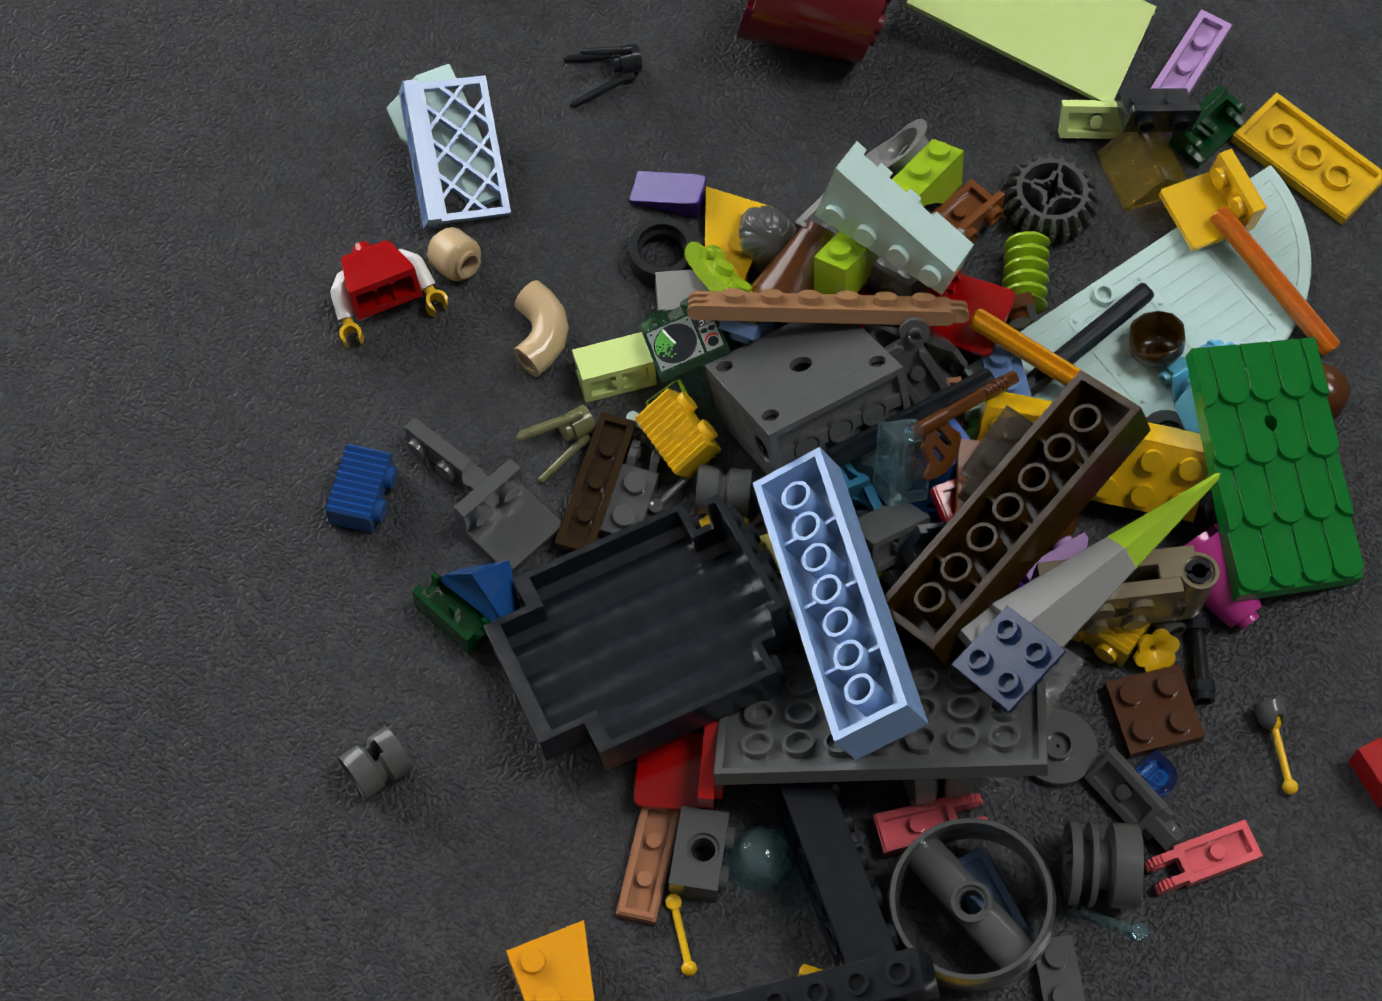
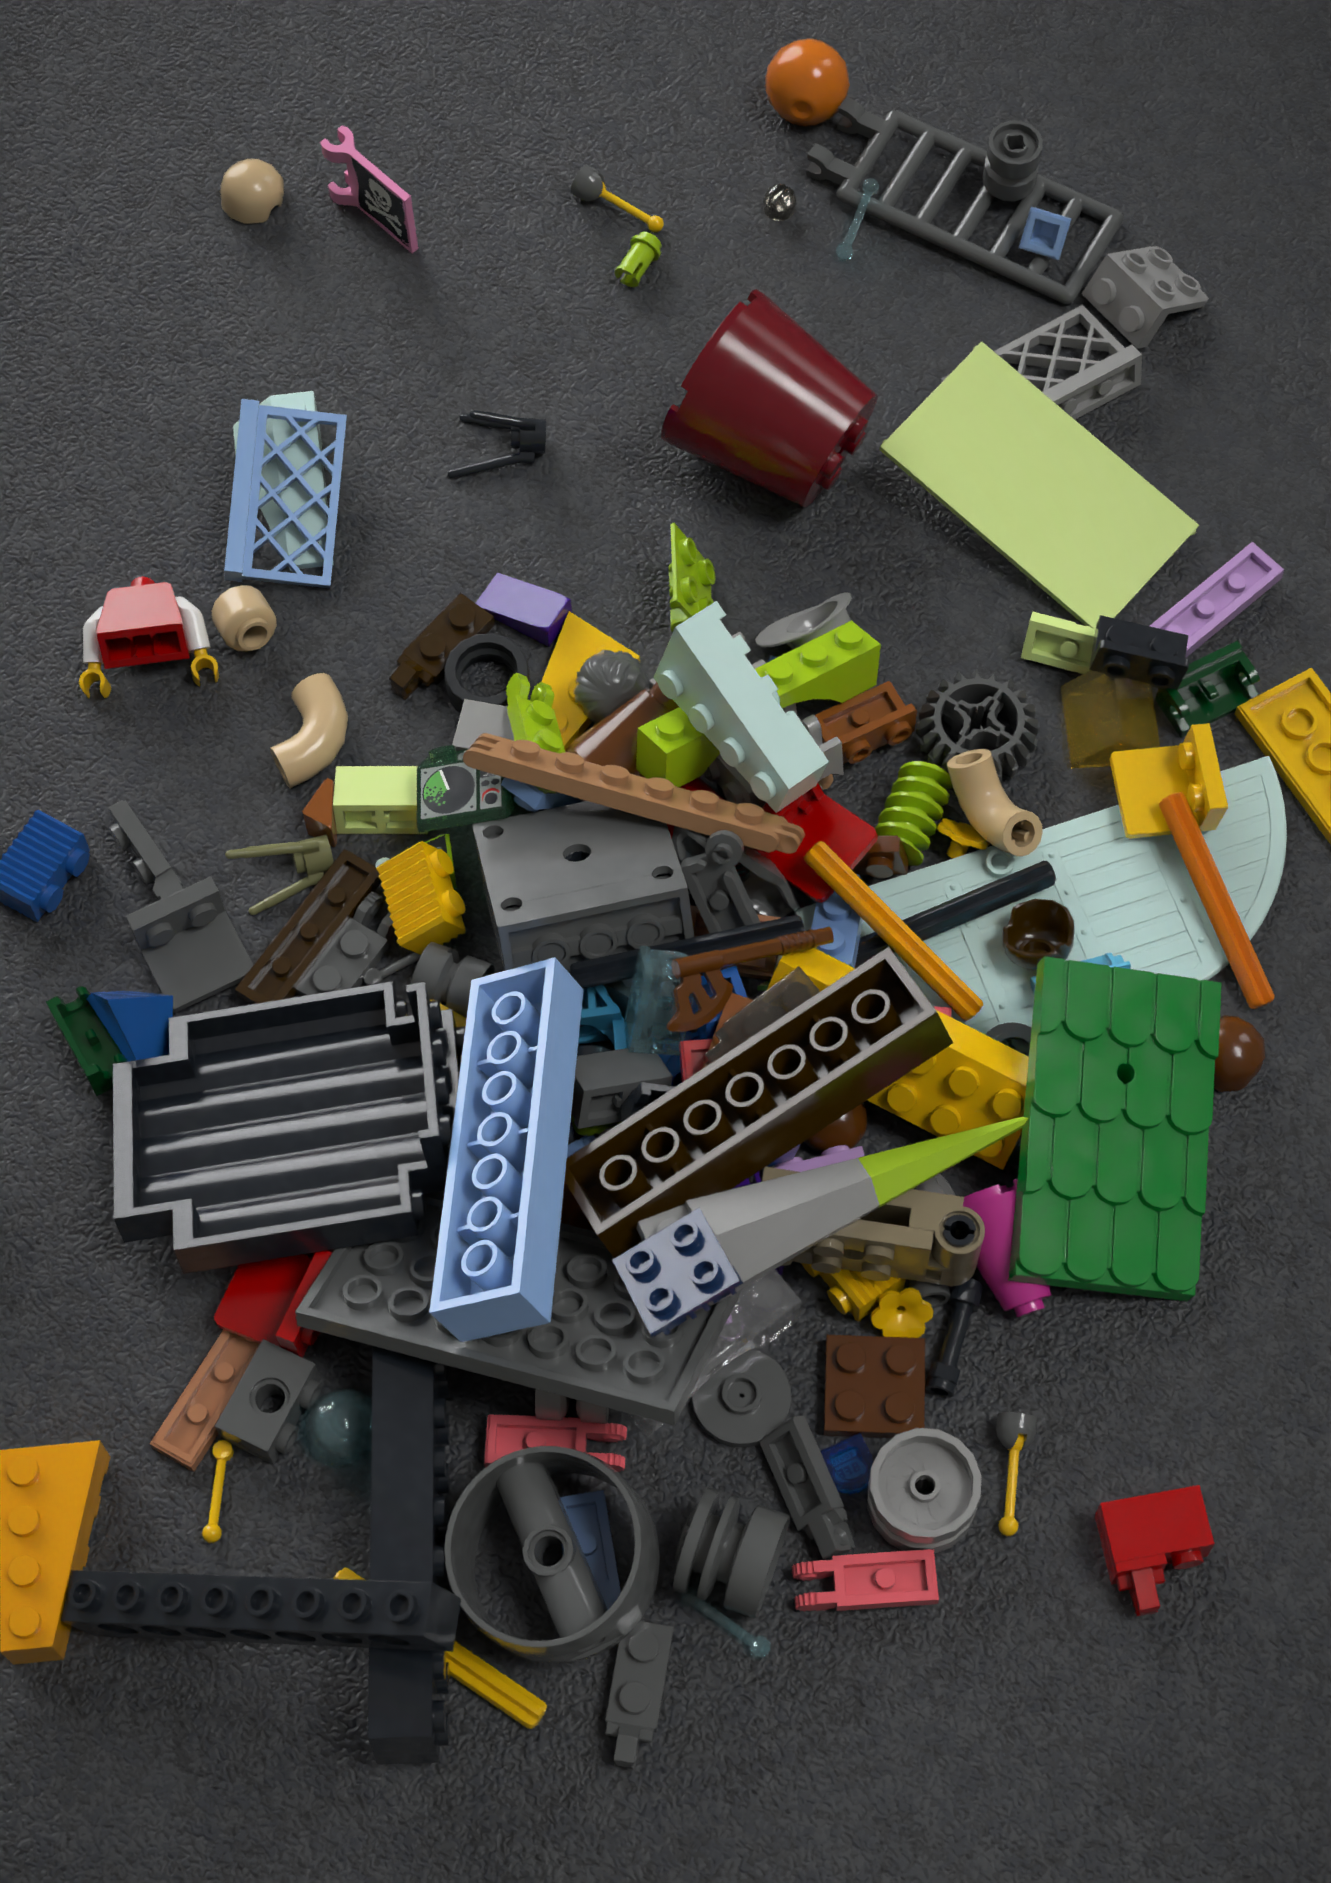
camera: 20 degrees right, 0 degrees up
(572, 388) = (319, 813): none -> dark orange slope
(610, 242) = (427, 654): none -> dark brown hinge
(791, 146) = (688, 578): none -> lime hinge
(1068, 283) = (962, 837): none -> yellow plant
(1084, 254) = (989, 807): none -> tan cylinder
(1224, 777) = (903, 1471): none -> light grey wheel

